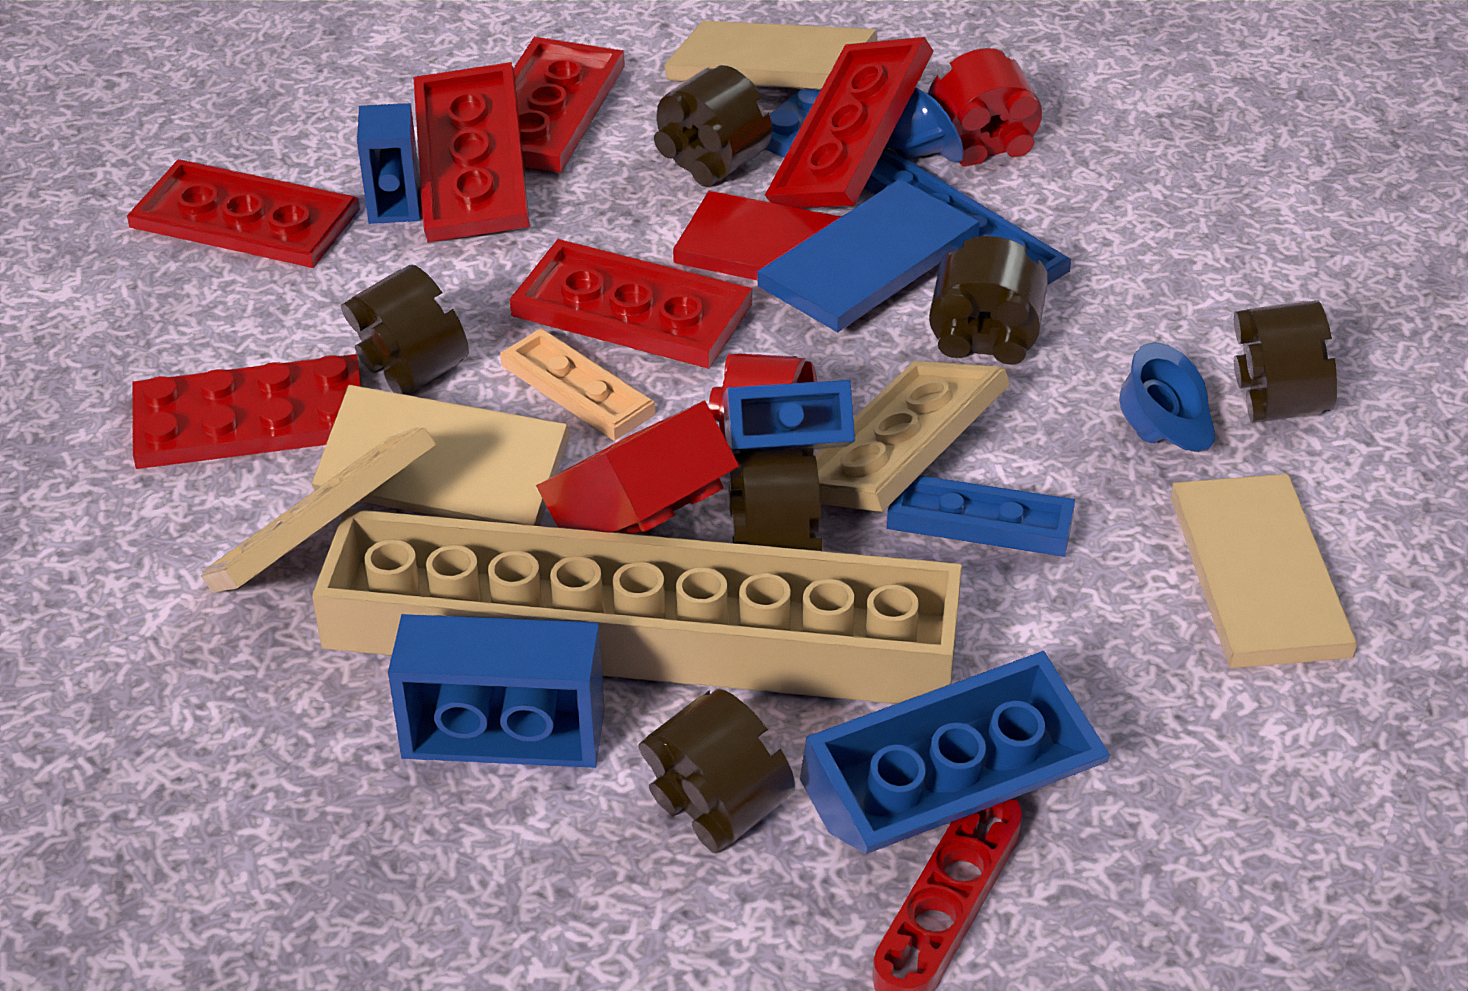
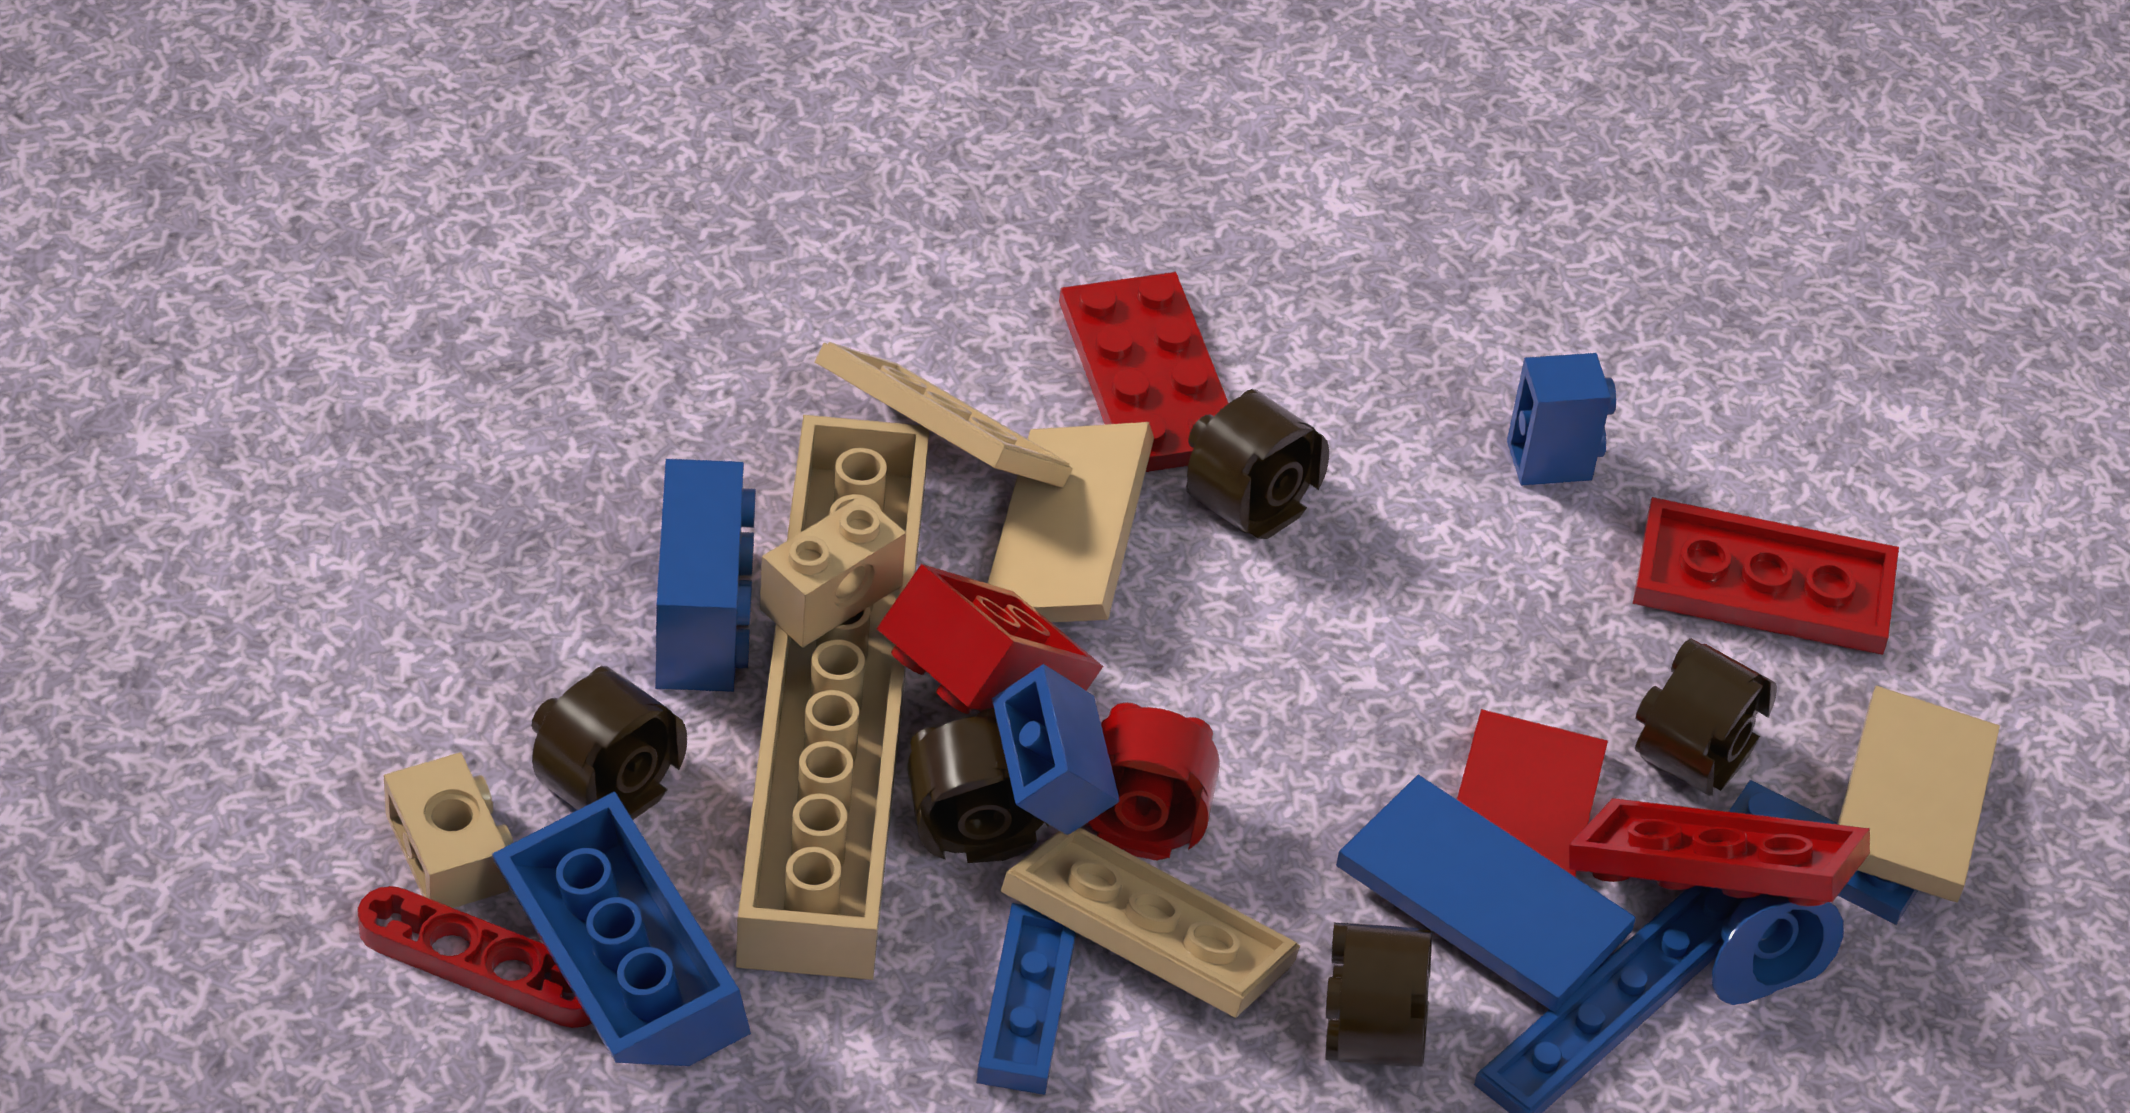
camera: 80 degrees right, 5 degrees up
(244, 213) = (1498, 309): red tile -> none
(470, 152) = (1613, 495): red plate -> none
(557, 553) = (832, 570): none -> tan brick
(578, 384) = (1229, 640): light nougat tile -> none
(632, 303) = (1369, 676): red plate -> none
(804, 913) = (447, 830): none -> tan brick
(989, 105) = (1809, 1009): red brick -> none

